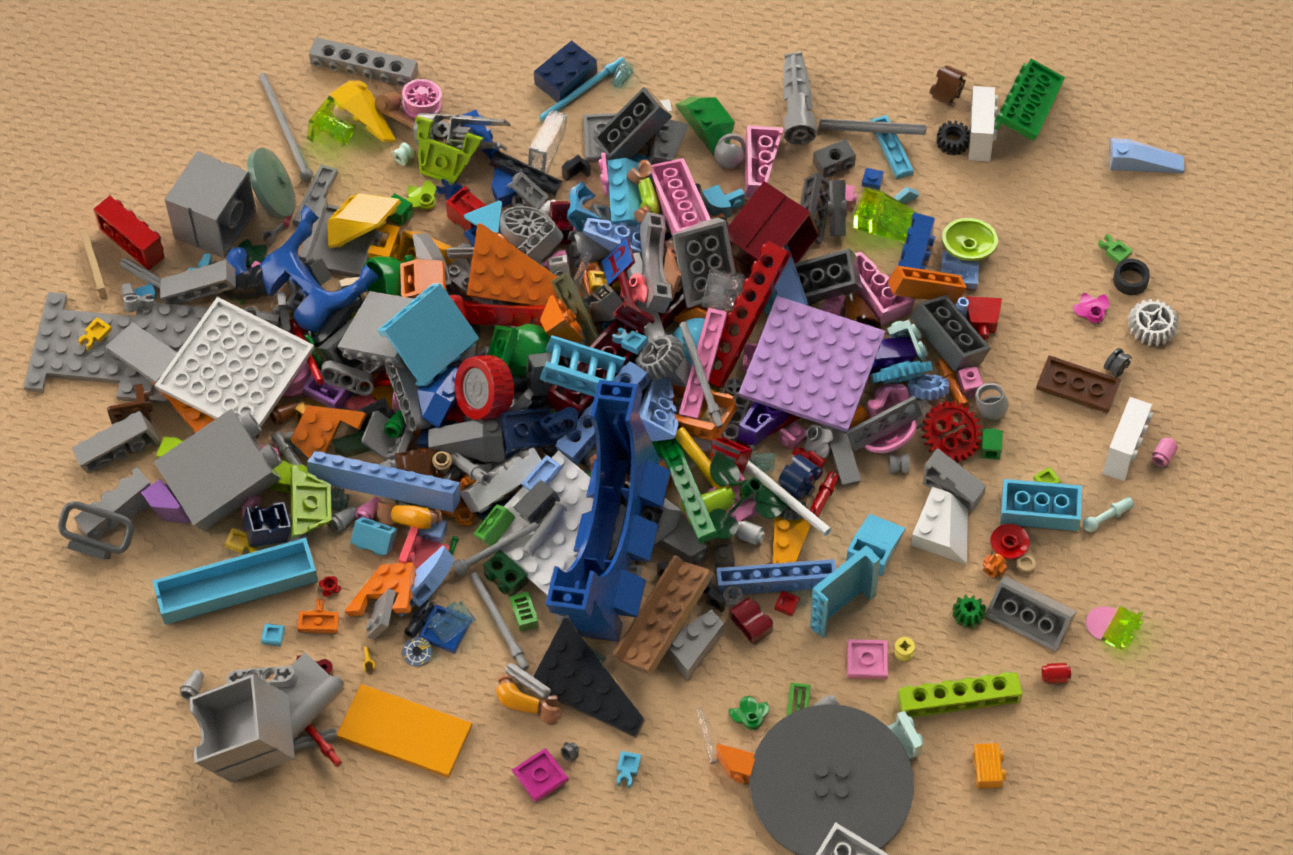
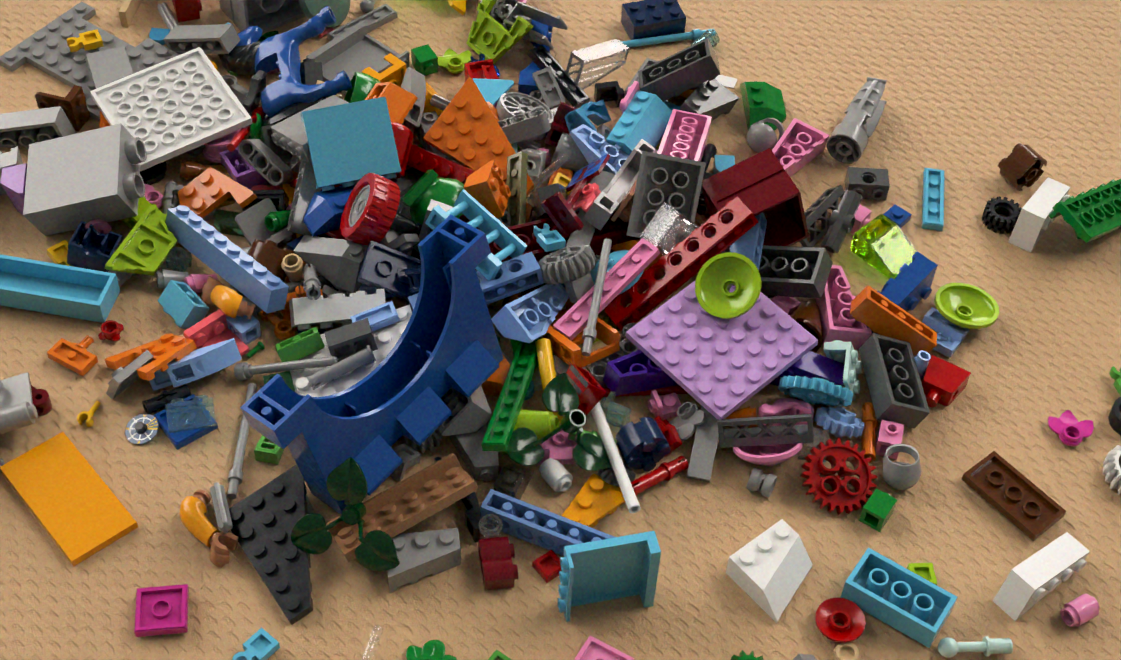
camera: 25 degrees right, 10 degrees down
(134, 302) = (142, 33): light grey bar -> none
(273, 634) = (24, 349): medium azure tile -> none
(358, 216) = (380, 44): yellow wedge -> none
(403, 154) = (462, 23): light aqua wheel -> none
(570, 751) = (211, 601): dark grey plate -> none
(629, 620) = (312, 534): none -> dark green plant
(647, 192) = (658, 125): piece -> none
(786, 325) = (719, 276): none -> lime dish
(869, 126) = (923, 172): light grey axle -> none
(880, 537) = (687, 550): medium azure slope -> none
(906, 195) = (924, 243): medium azure tile -> none
(949, 476) = (808, 518): light grey wedge -> none
(994, 565) = (806, 637): orange gear -> none
(1117, 362) = (1071, 491): dark grey wheel -> none

